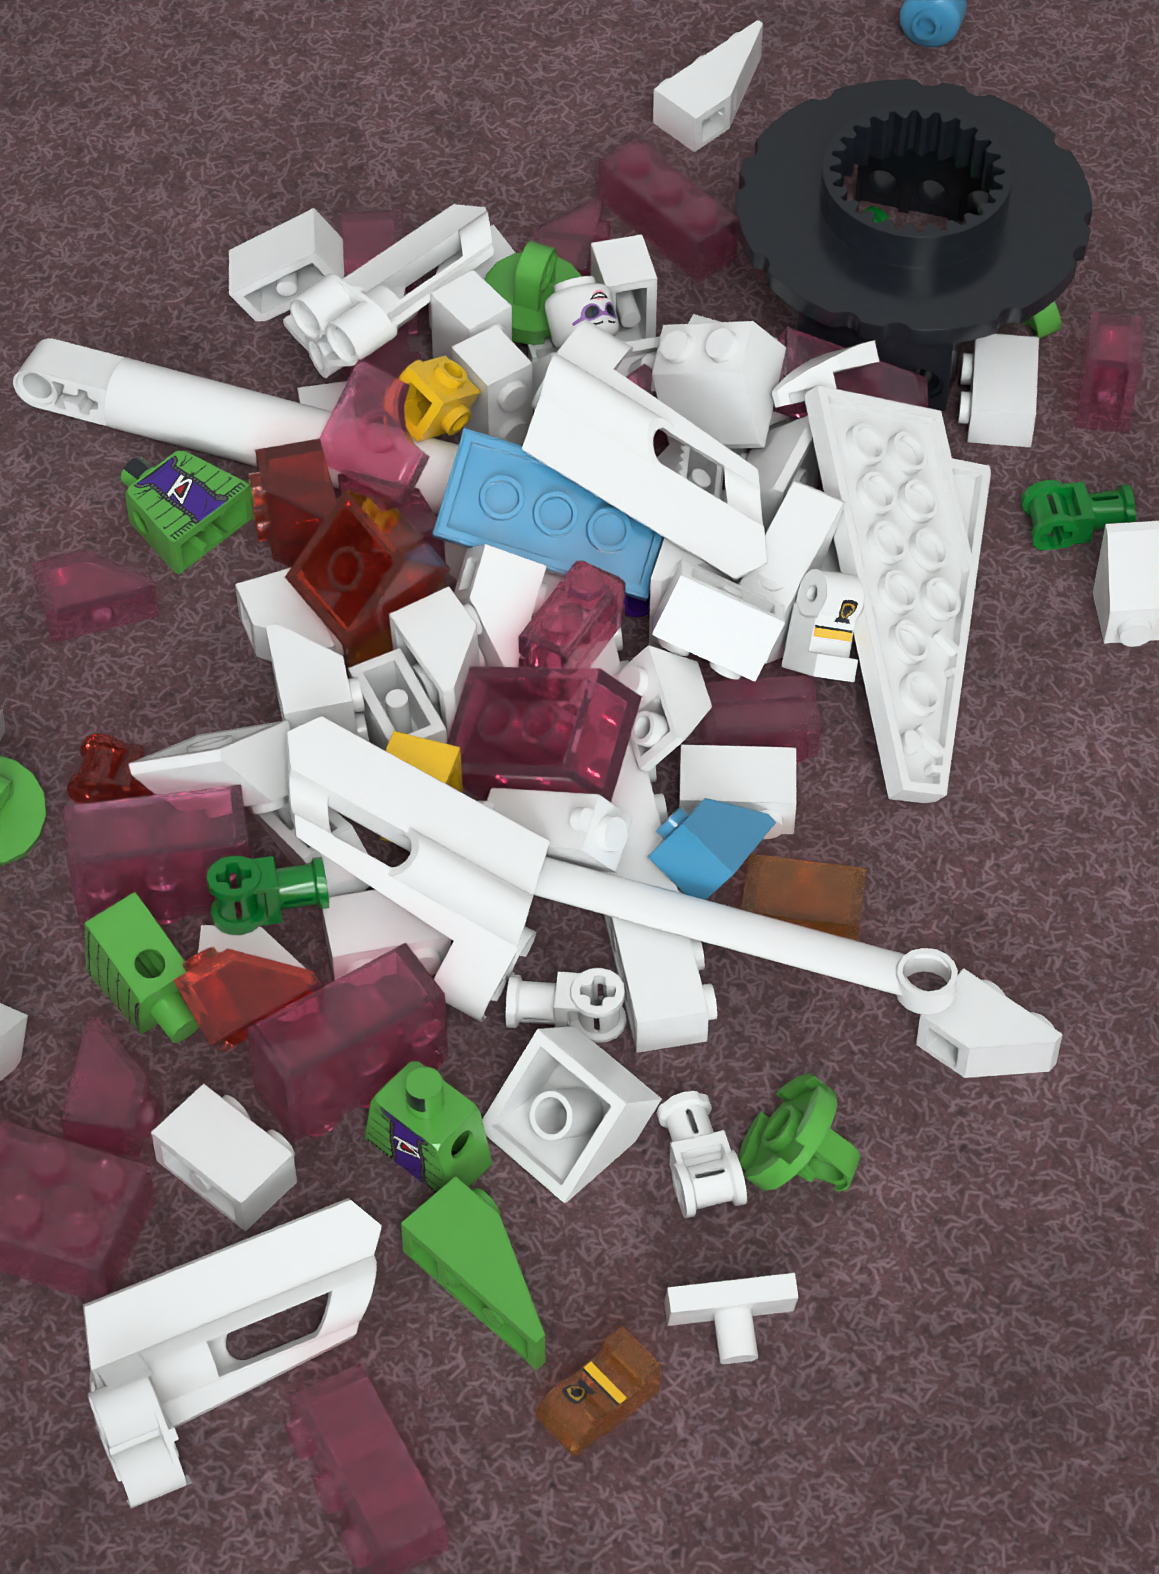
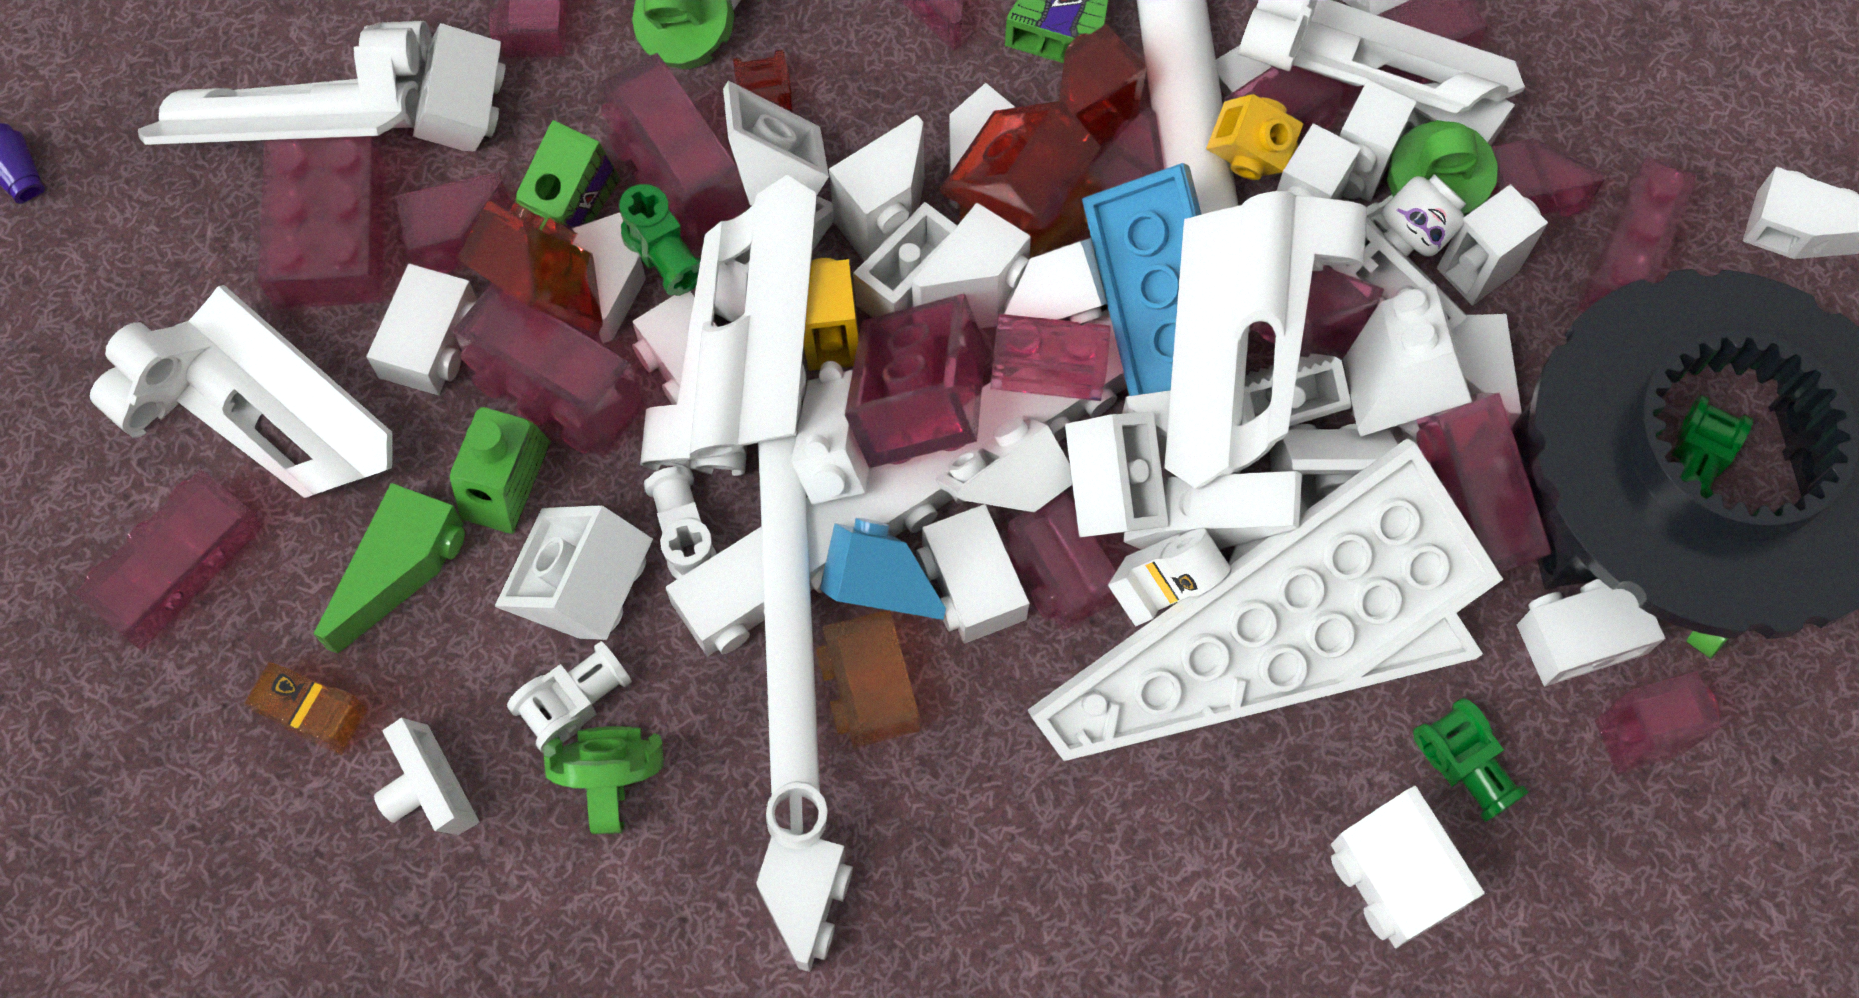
camera: 65 degrees right, 15 degrees up
(370, 435) = (1181, 105): clear pink tile -> none
(820, 372) = (1443, 437): white slope -> none

